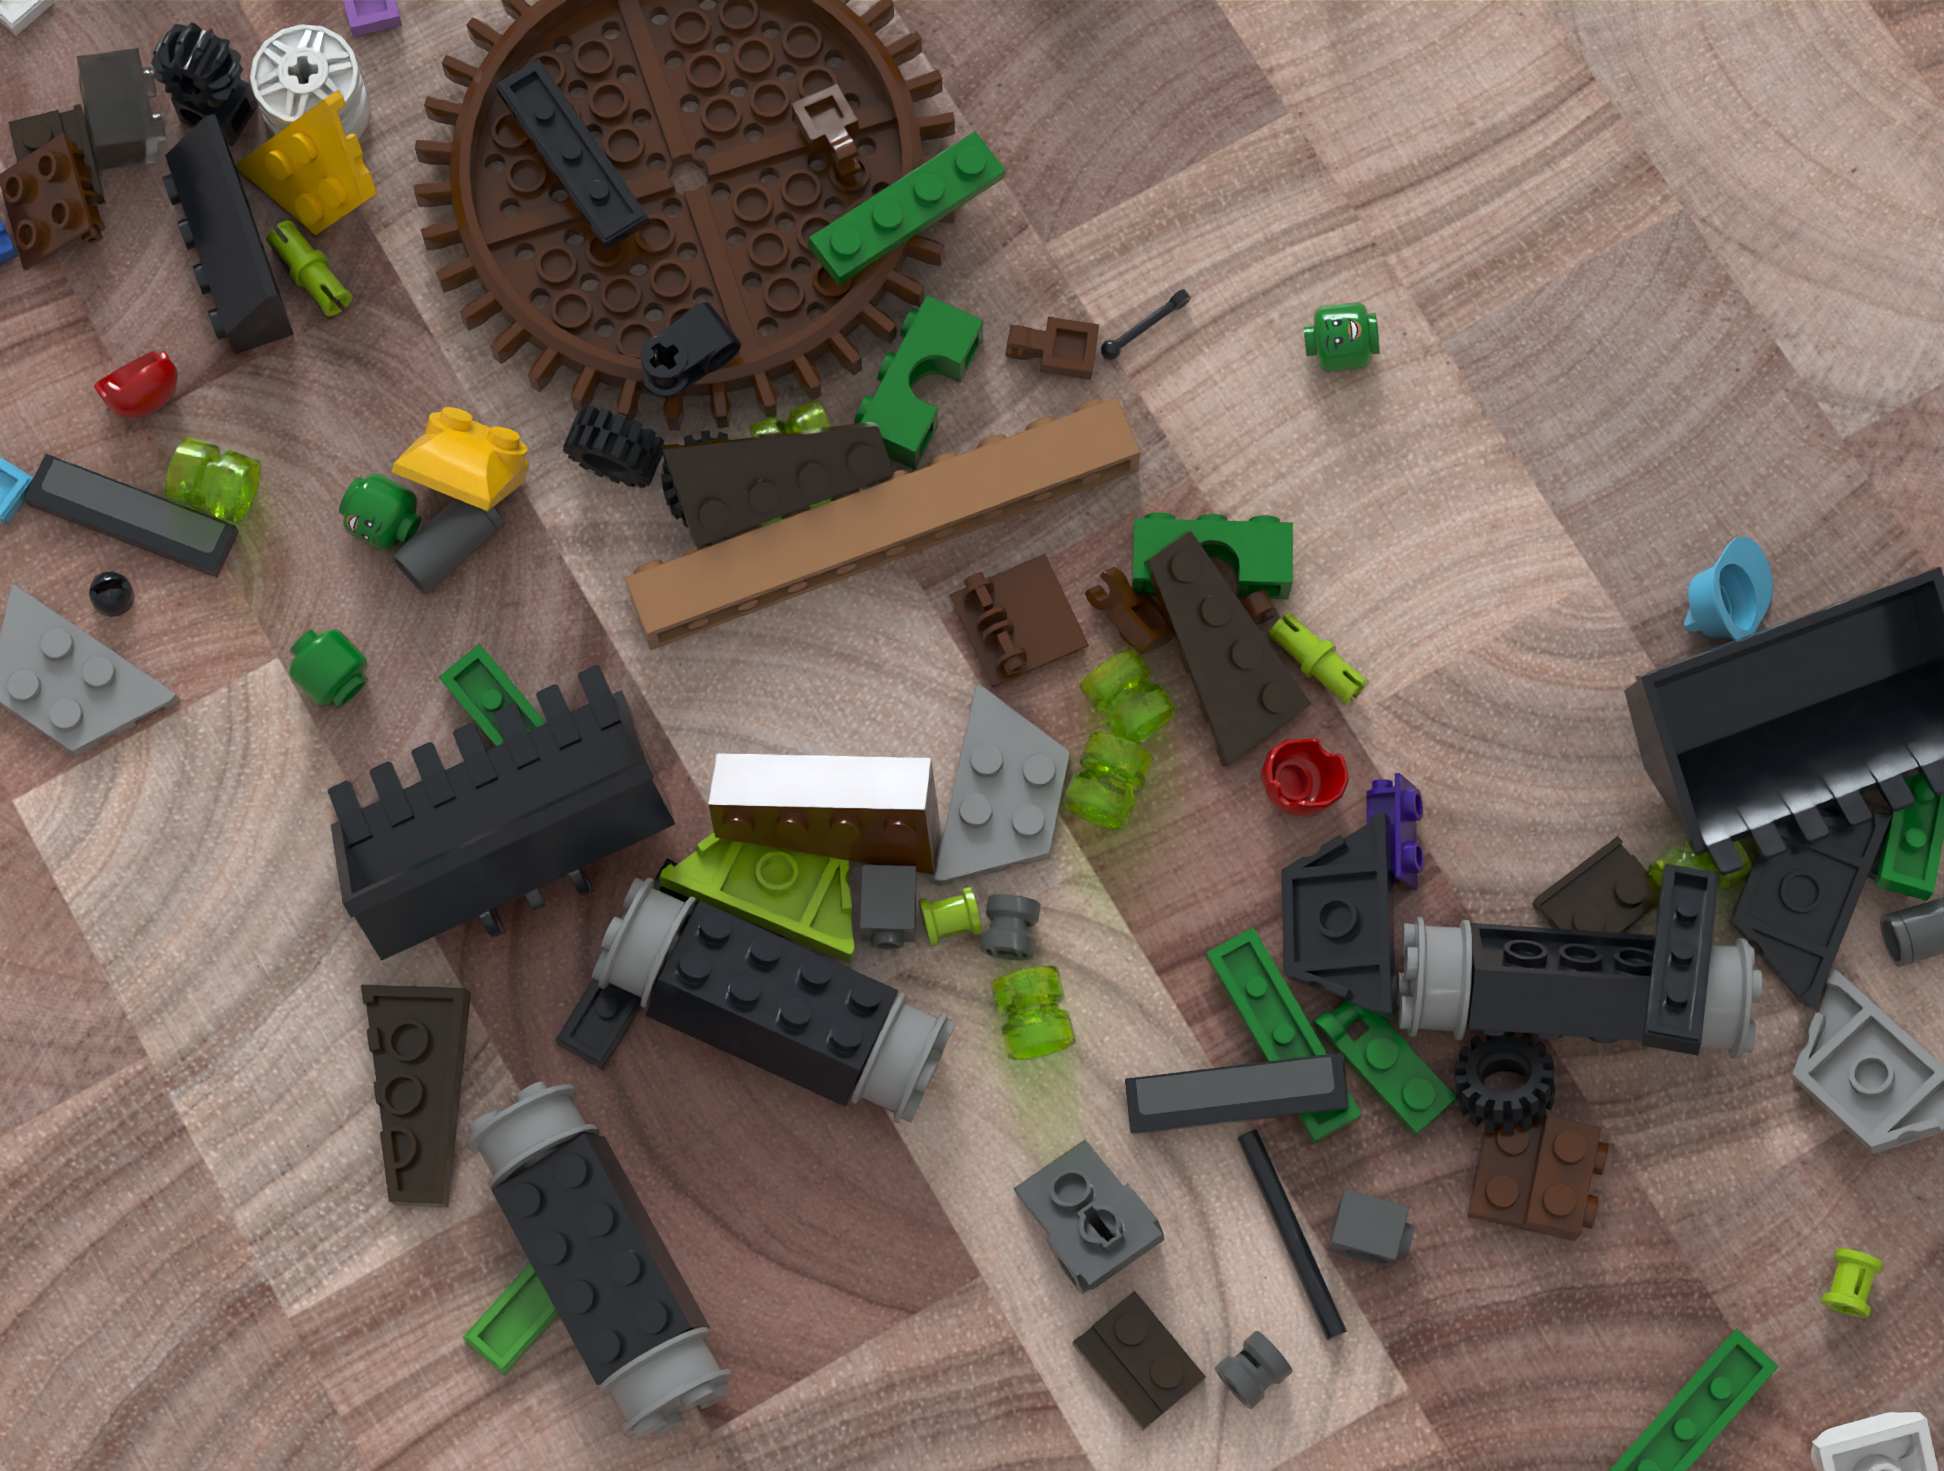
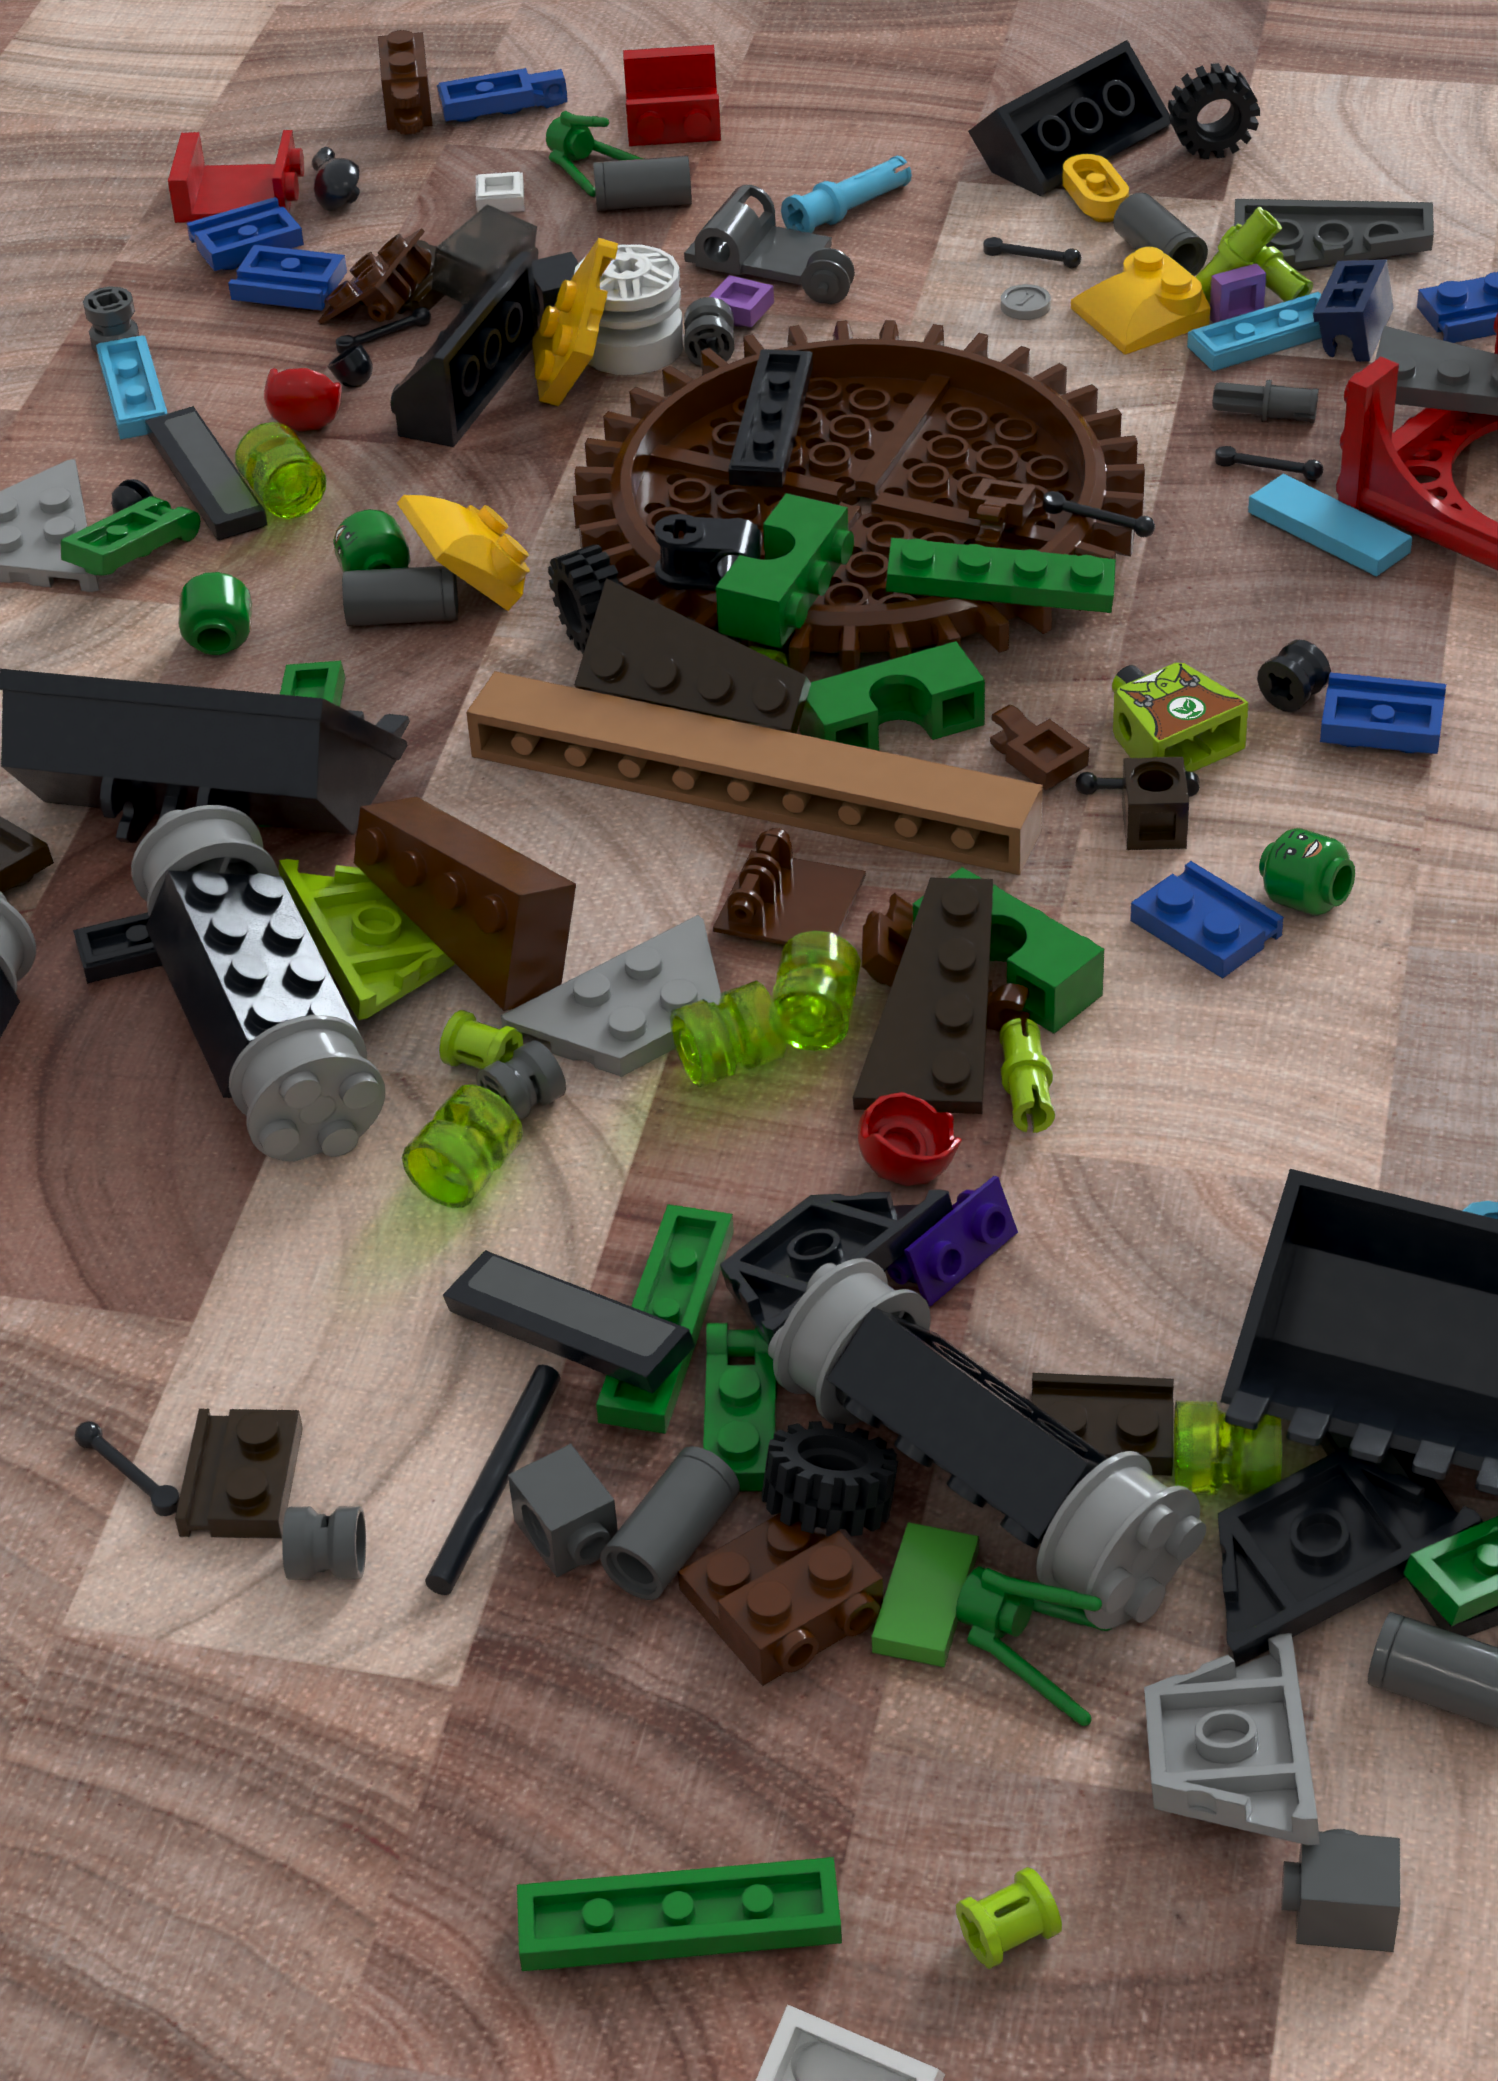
camera: 45 degrees right, 30 degrees down
(80, 279) = (420, 316): none -> black hinge
(126, 311) = (352, 366): none -> black hinge
(168, 640) = (129, 535): none -> green plate
(197, 65) = (554, 229): black gear -> none
(309, 268) = (507, 408): lime pin -> none
(387, 63) = (708, 325): none -> dark grey wheel
(750, 287) = (802, 552): none -> green arch
(875, 97) = (1055, 503): none -> black hinge
(888, 905) = (432, 994): dark grey brick -> none
(1089, 1217) = (325, 1334): dark grey piece -> none
(1110, 1416) = (163, 1498): none -> black hinge
(1125, 249) = (1177, 715): none -> lime torso
(1169, 141) = (1294, 675): none -> black wheel
(1190, 363) = (1155, 803): none -> dark brown brick
(1257, 132) = (1383, 713): none -> blue plate
(1302, 422) = (1206, 919): none -> blue plate
(1436, 1184) = (670, 1523): none -> dark grey pin
(1614, 1105) = (923, 1594): none -> bright green tile
(1666, 1083) = (1003, 1606): none -> green plant
(1680, 959) = (1091, 1432): black tile -> none

